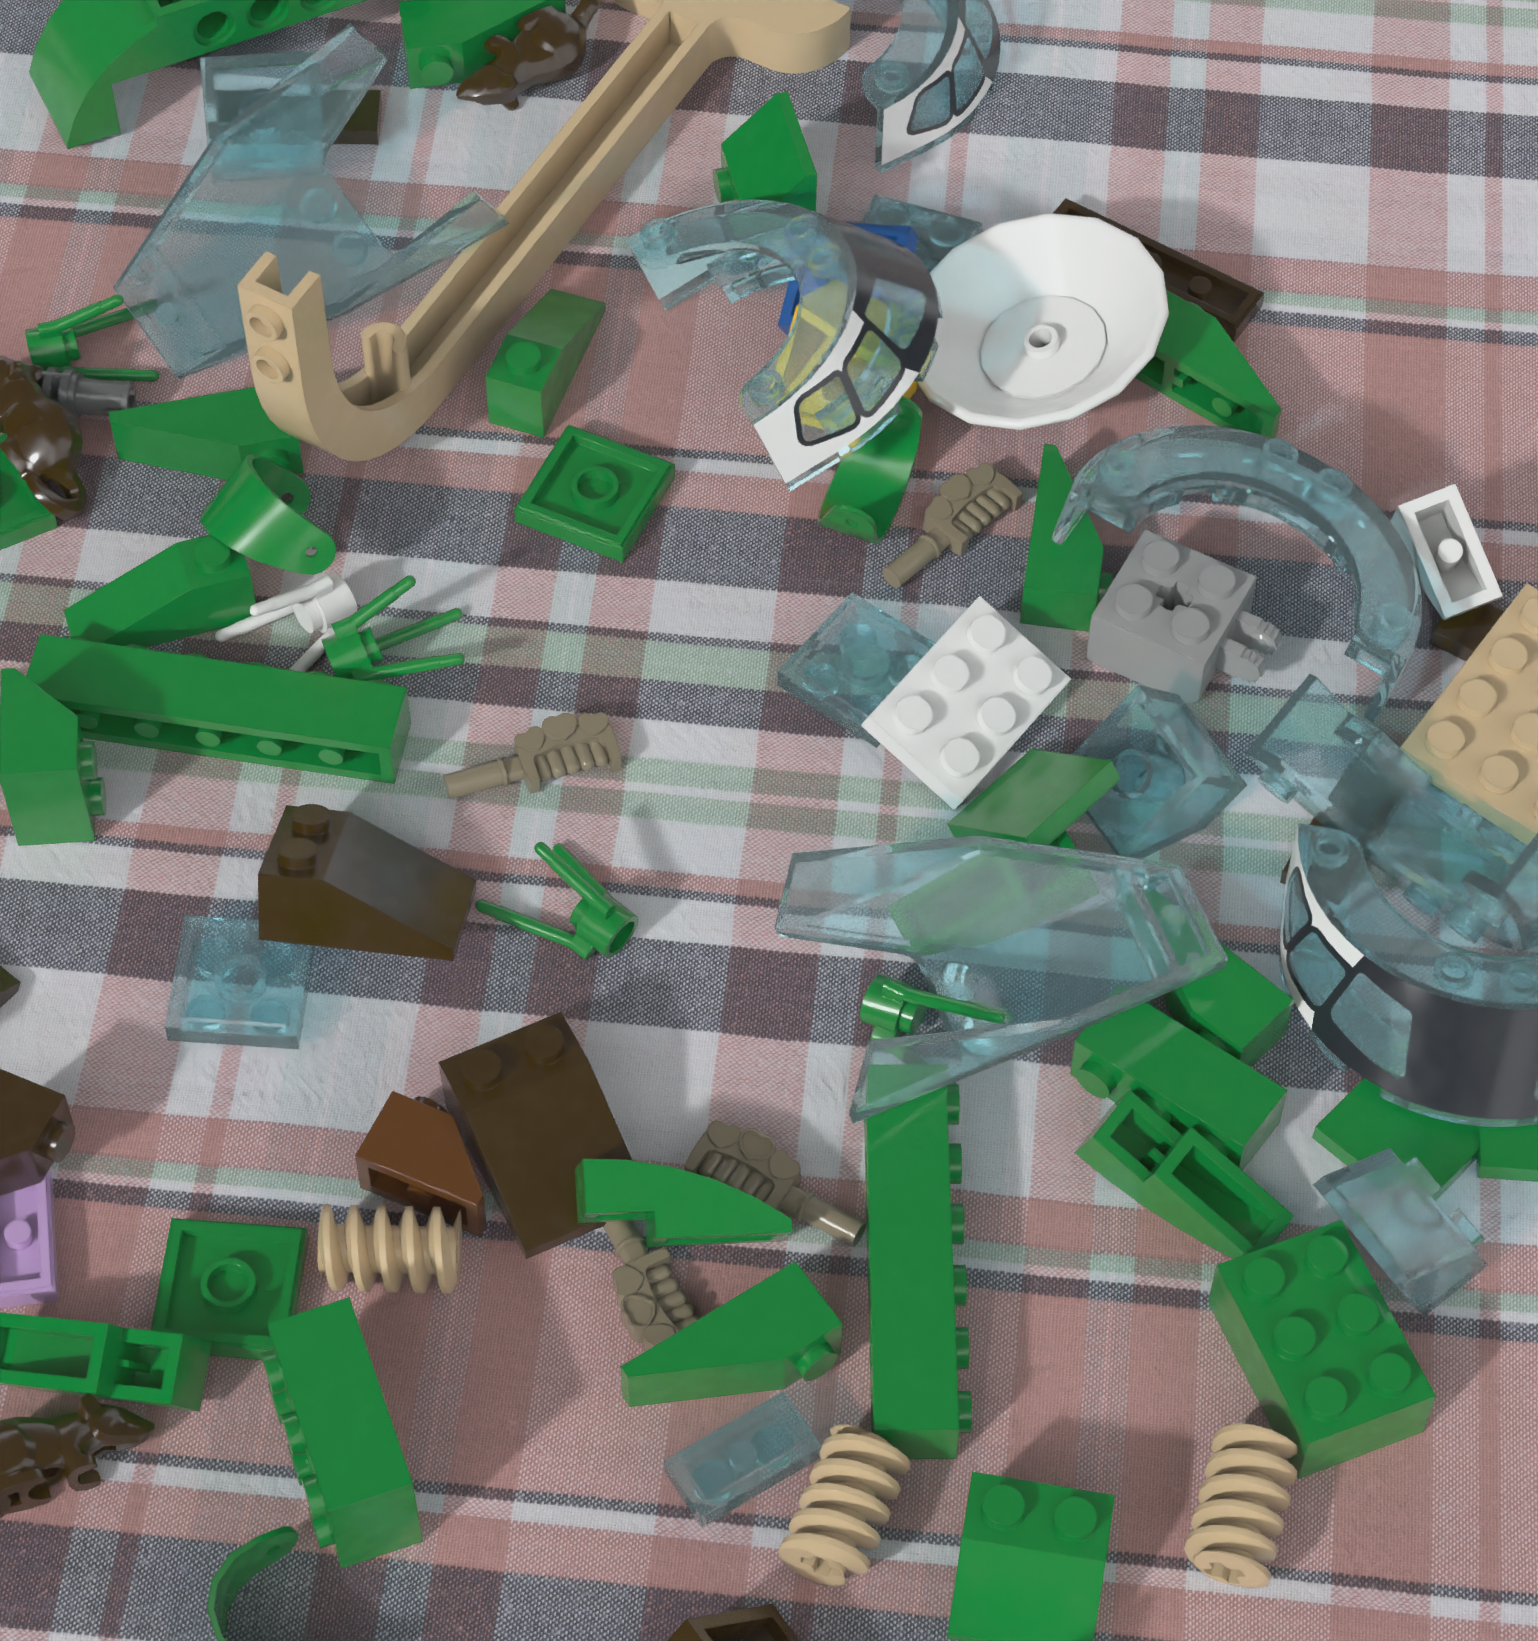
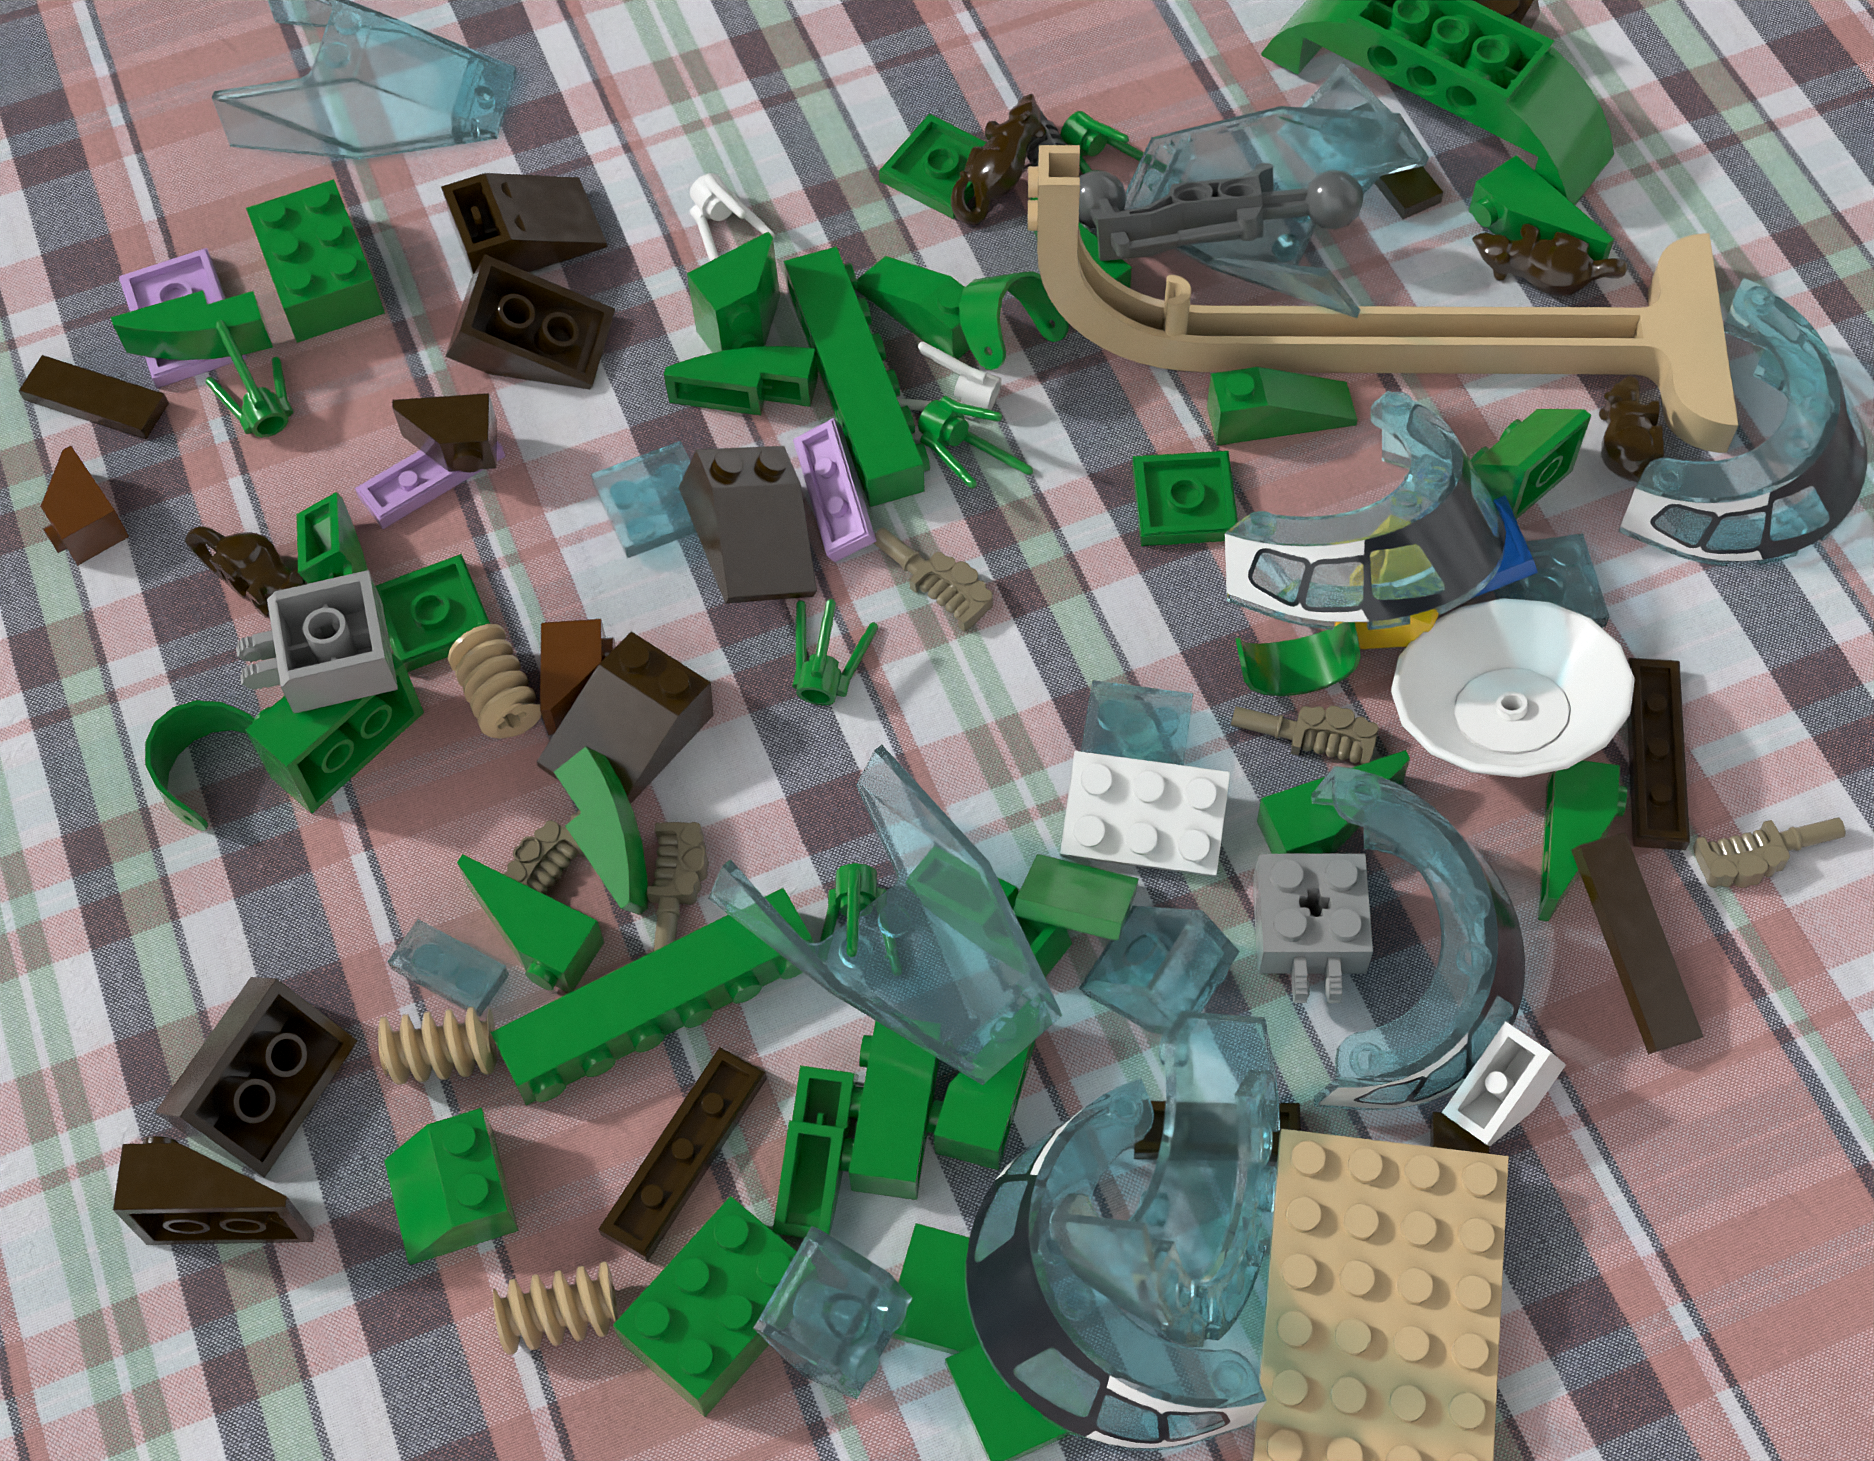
camera: 65 degrees right, 5 degrees up
(145, 814) = (744, 378): none -> green slope
(294, 1347) = (325, 643): none -> light grey hinge
(303, 238) = (1209, 210): none -> dark grey piece
(399, 804) = (834, 490): none -> lavender tile
(812, 94) = (1632, 431): none -> dark brown animal
(1110, 1319) = (682, 1154): none -> dark brown tile
(1303, 251) = (1759, 854): none -> dark tan piece
(1355, 379) = (1637, 943): none -> dark brown tile

